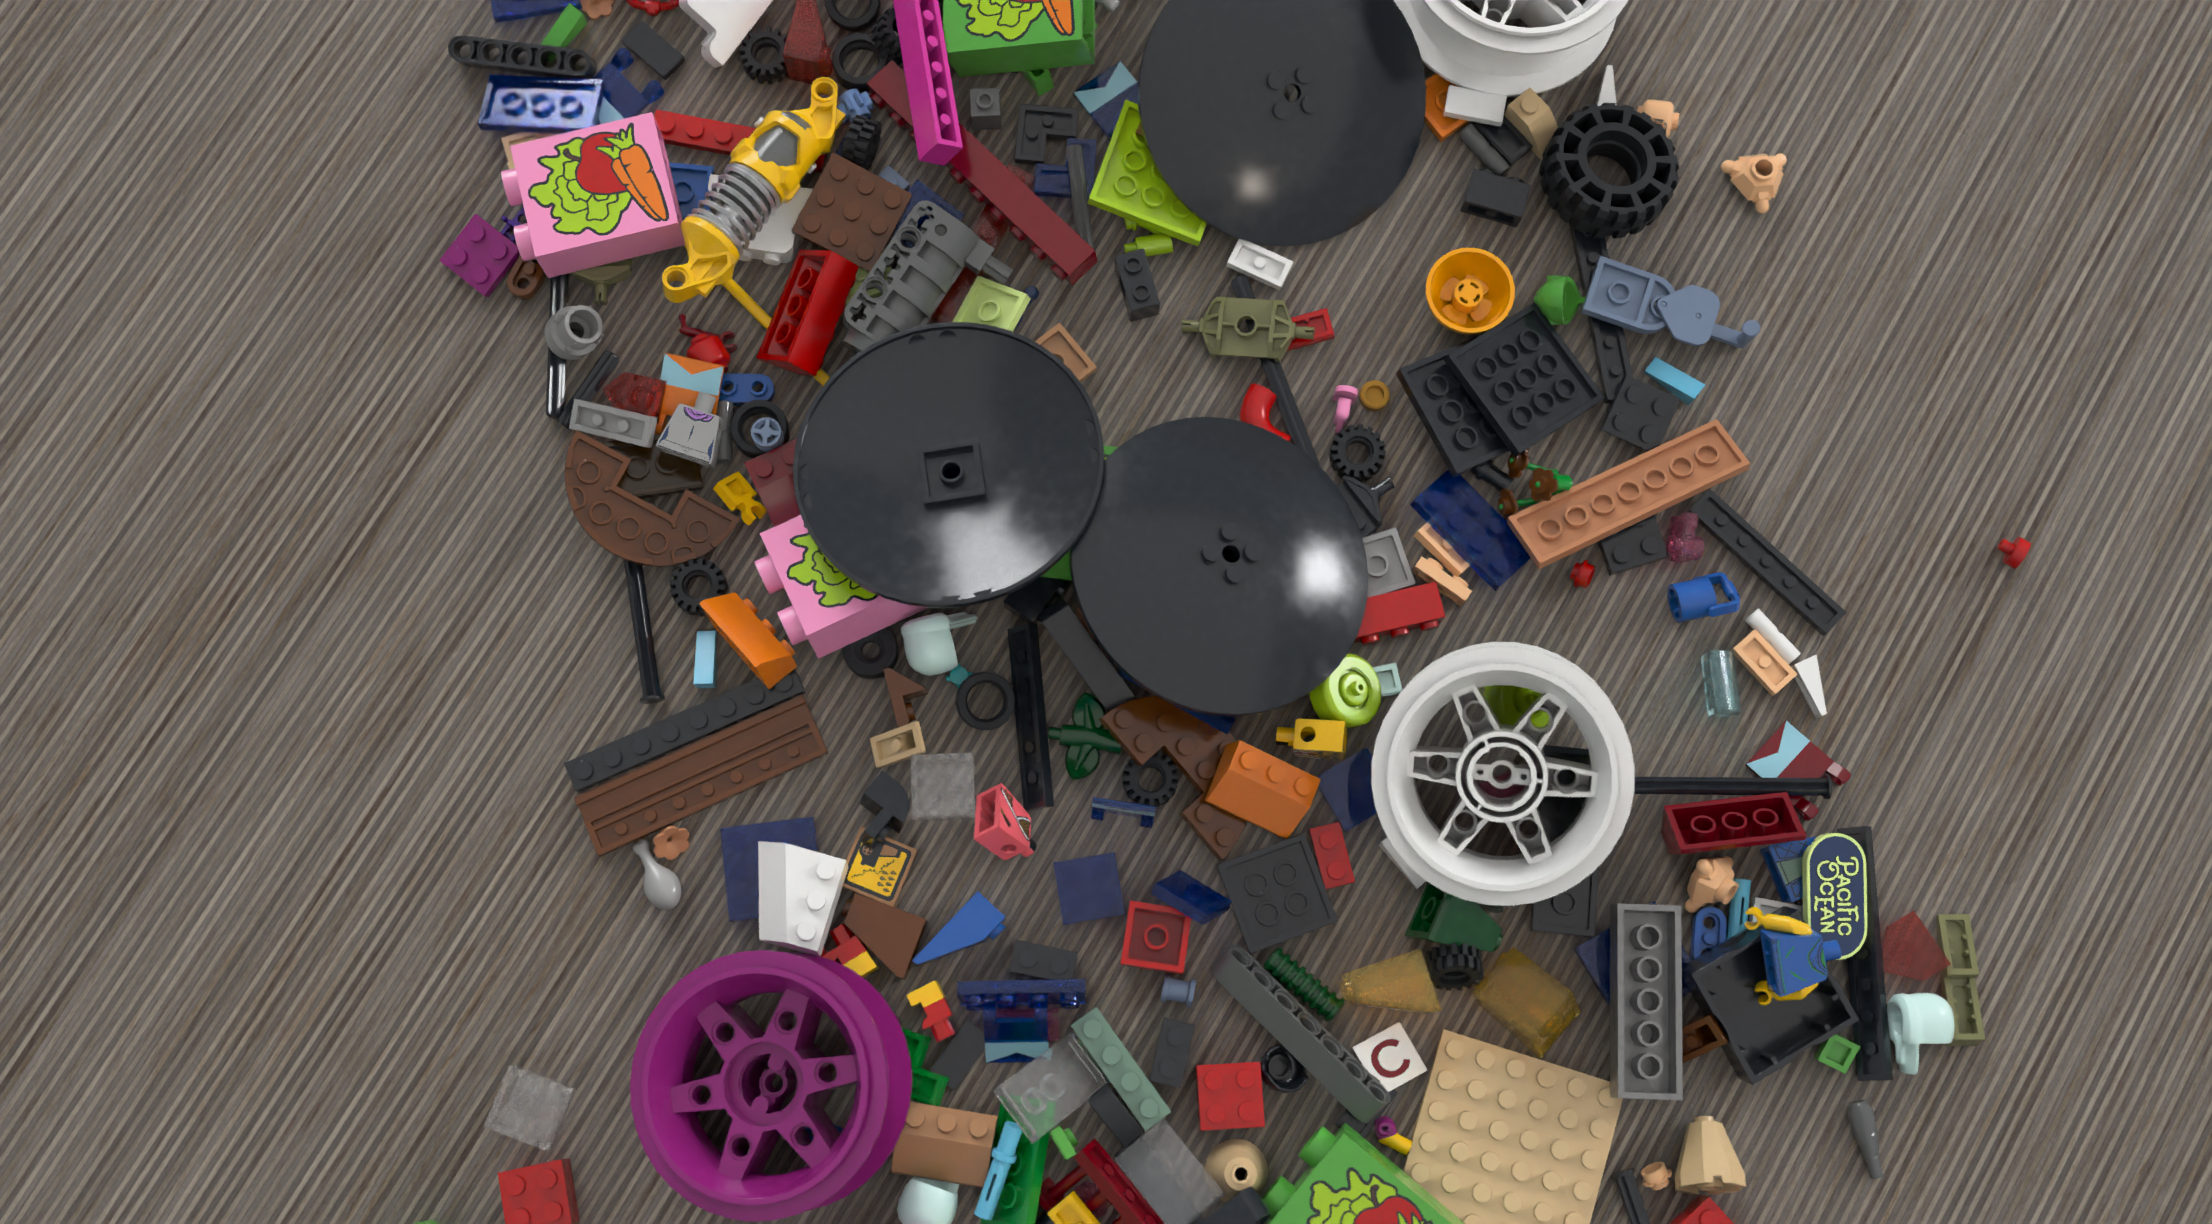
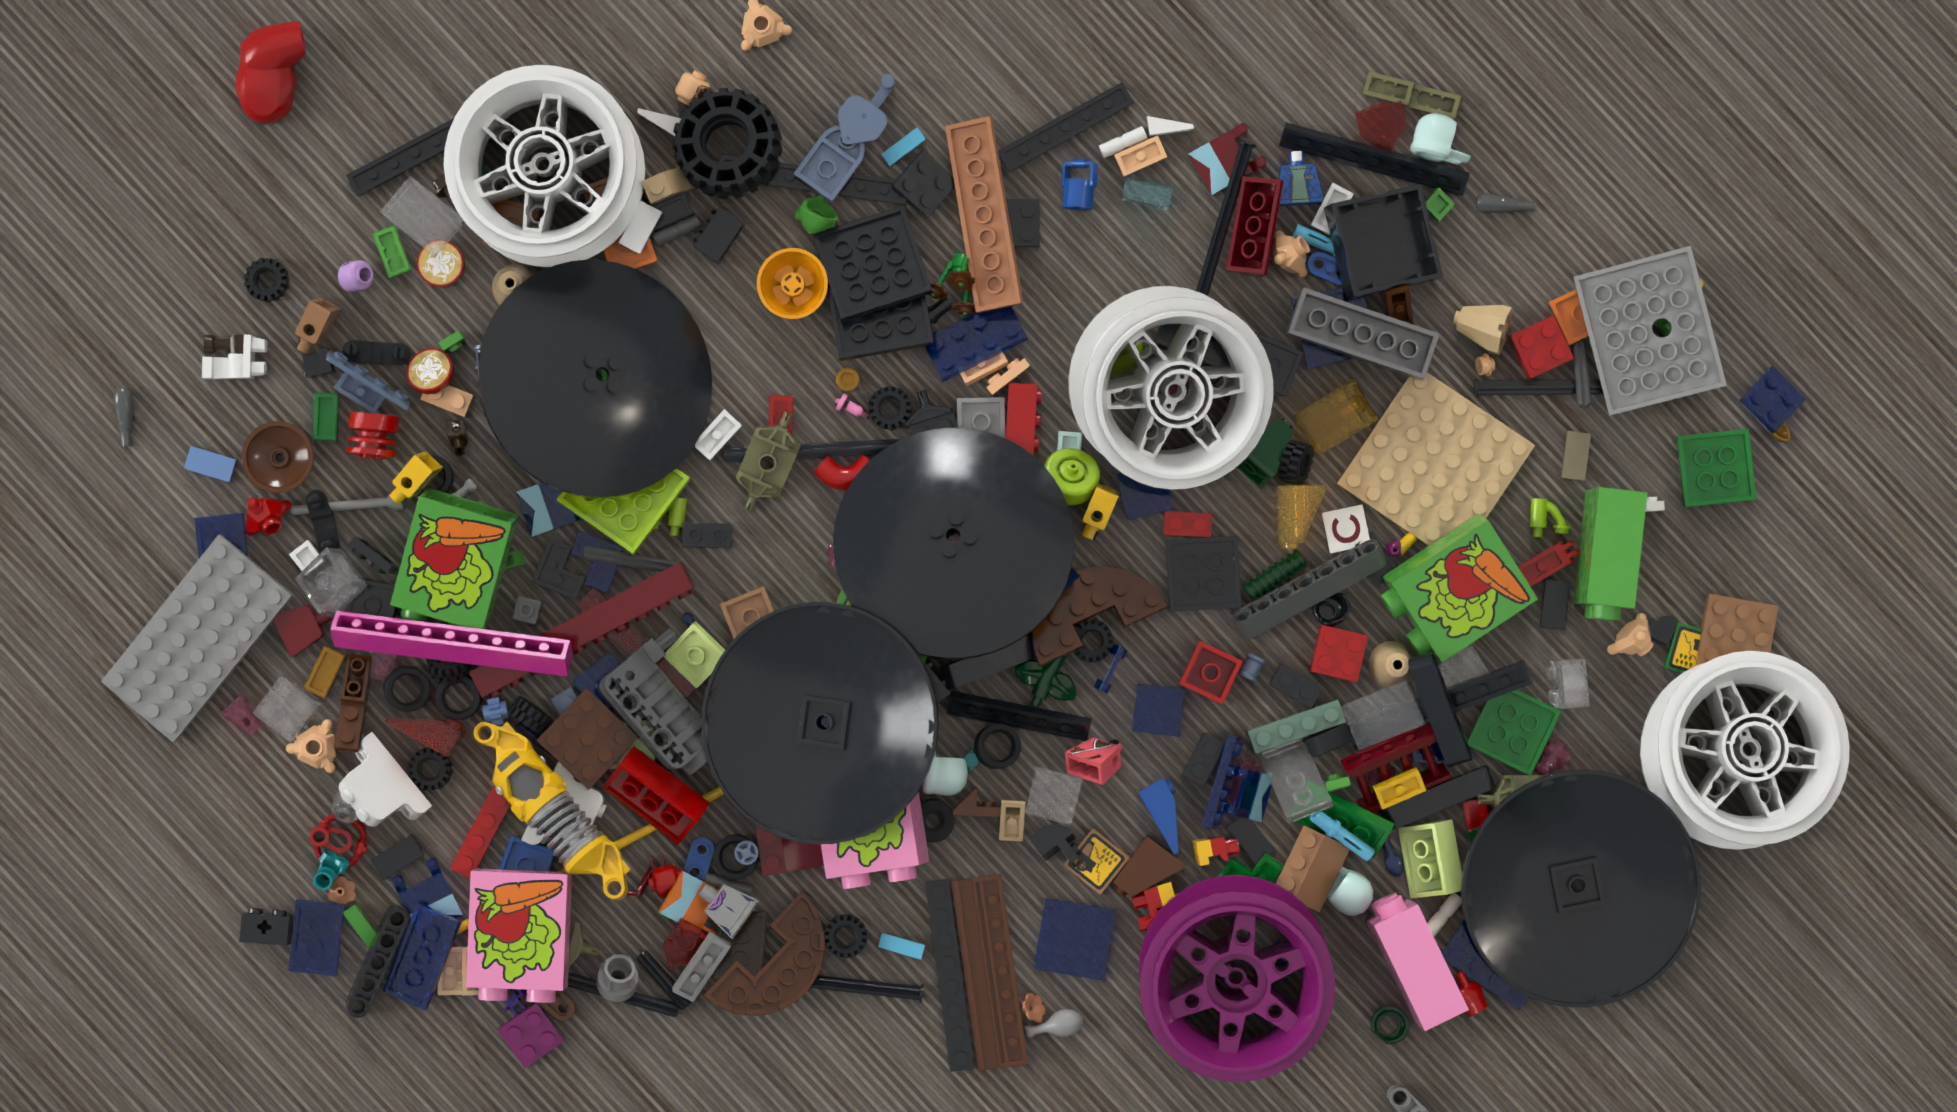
camera: 75 degrees left, 10 degrees up
(739, 495) = (782, 888): yellow plate -> none
(750, 637) = (899, 906): orange slope -> none
(797, 895) = (1103, 925): white wedge -> none
(1191, 897) = (1189, 638): clear blue plate -> none
(1261, 789) = (1125, 562): orange slope -> none
(1582, 574) = (1033, 268): red plate -> none
(1682, 542) = (1033, 184): clear pink plate -> none
(1792, 956) = (1362, 220): blue torso -> none
(1836, 891) = (1328, 169): tile -> none

